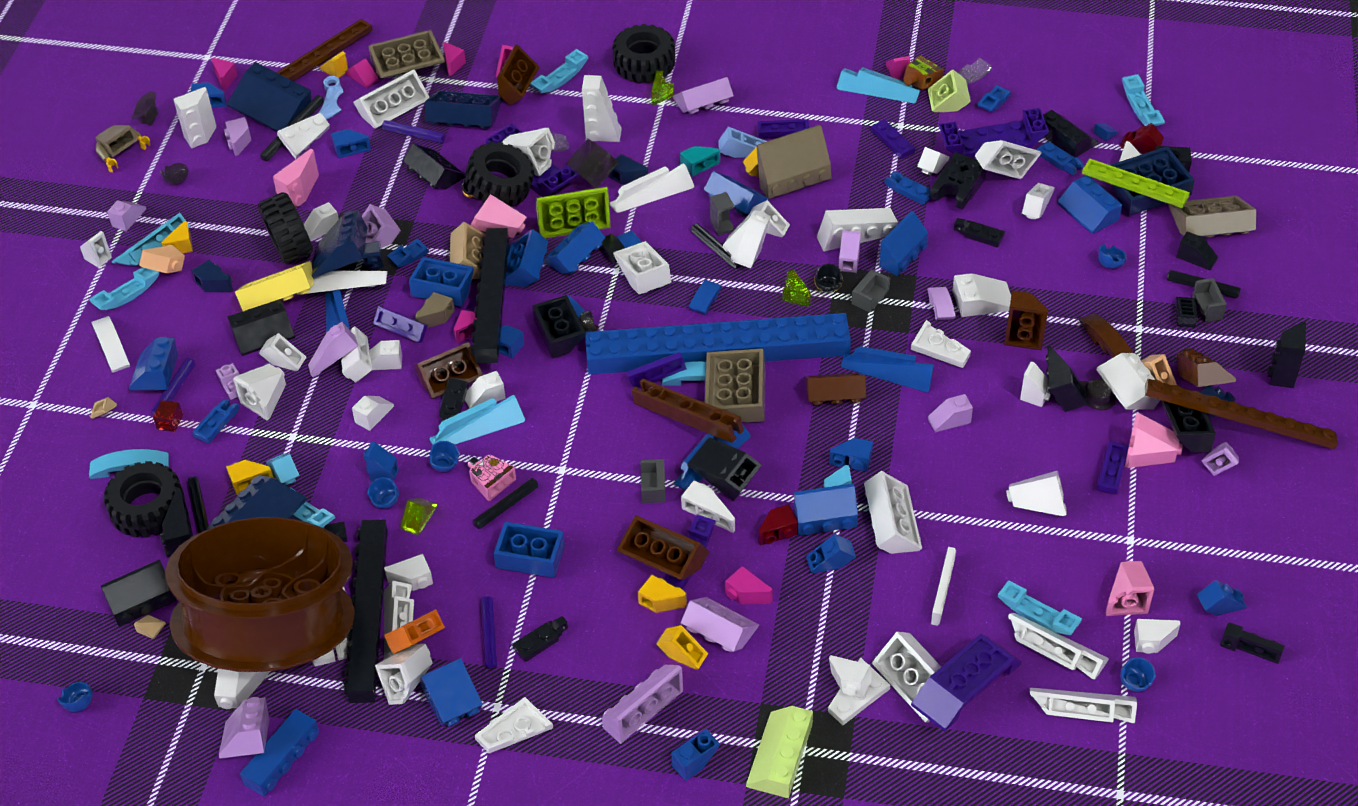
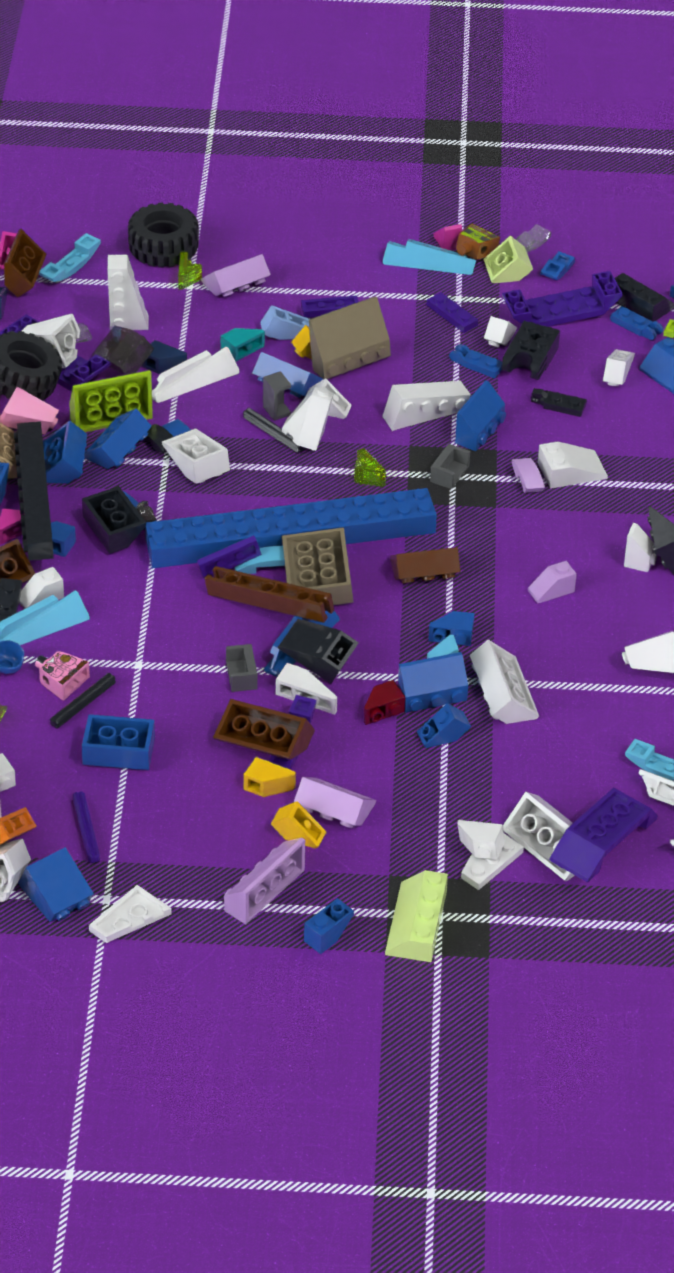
camera: 10 degrees left, 5 degrees down
(540, 638) = (143, 829): black hinge -> none
(705, 296) = (269, 482): blue slope -> none
(747, 588) = (360, 765): dark pink slope -> none
(828, 278) = (402, 455): black hair -> none
(849, 251) = (422, 426): lavender slope -> none
(891, 367) = (482, 541): blue wedge -> none
(937, 345) = (531, 518): white wing -> none
(943, 586) = (567, 749): white tile -> none
(1006, 158) = (581, 323): white slope -> none
(1025, 321) = (622, 485): reddish brown slope -> none

